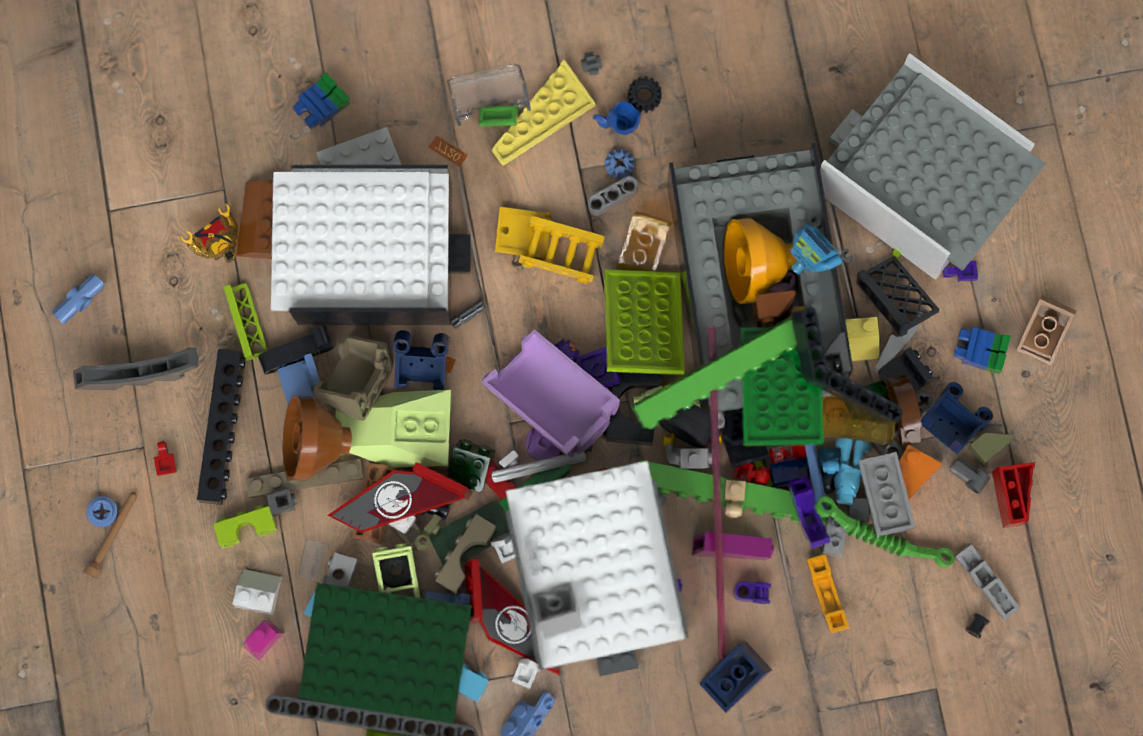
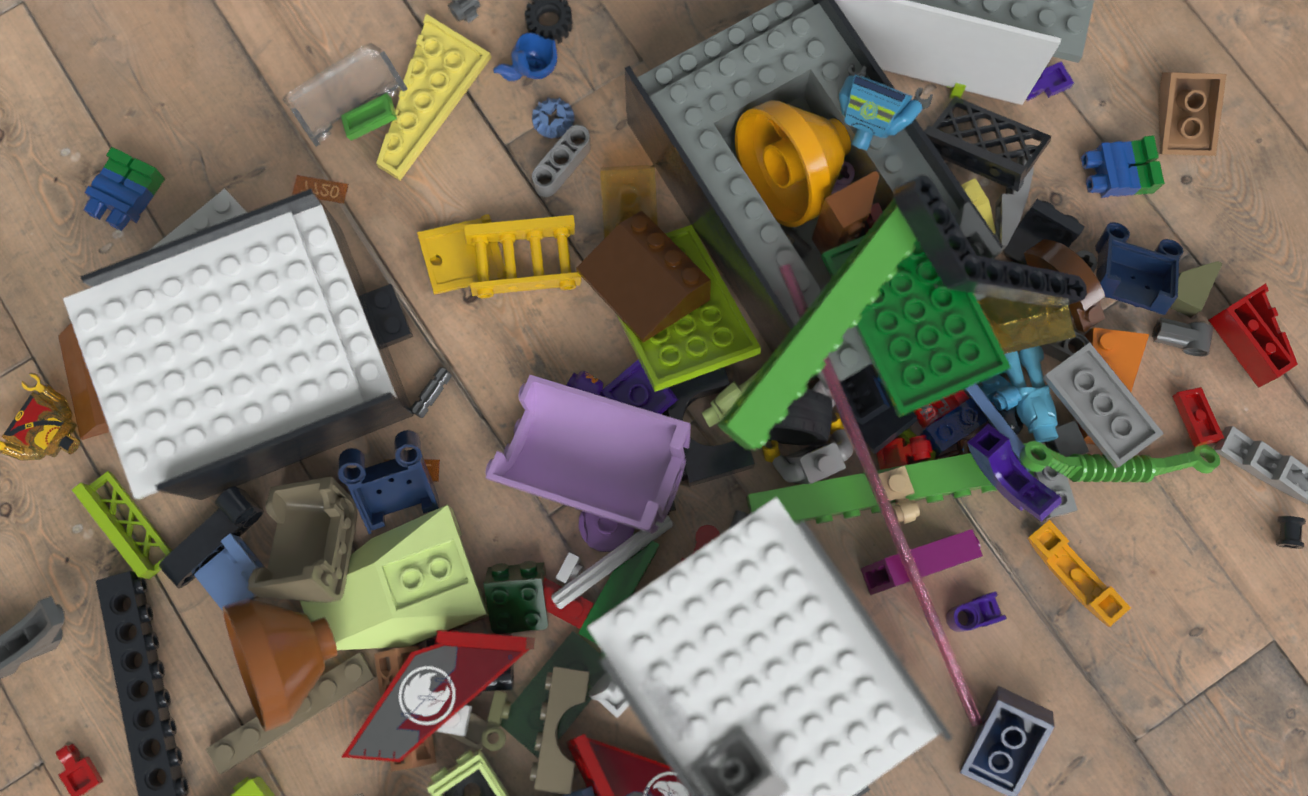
camera: 25 degrees left, 0 degrees up
(275, 499) = (260, 767): dark grey brick -> none
(632, 296) = (645, 277): none -> reddish brown slope
(952, 529) = (1197, 417): none -> red plate

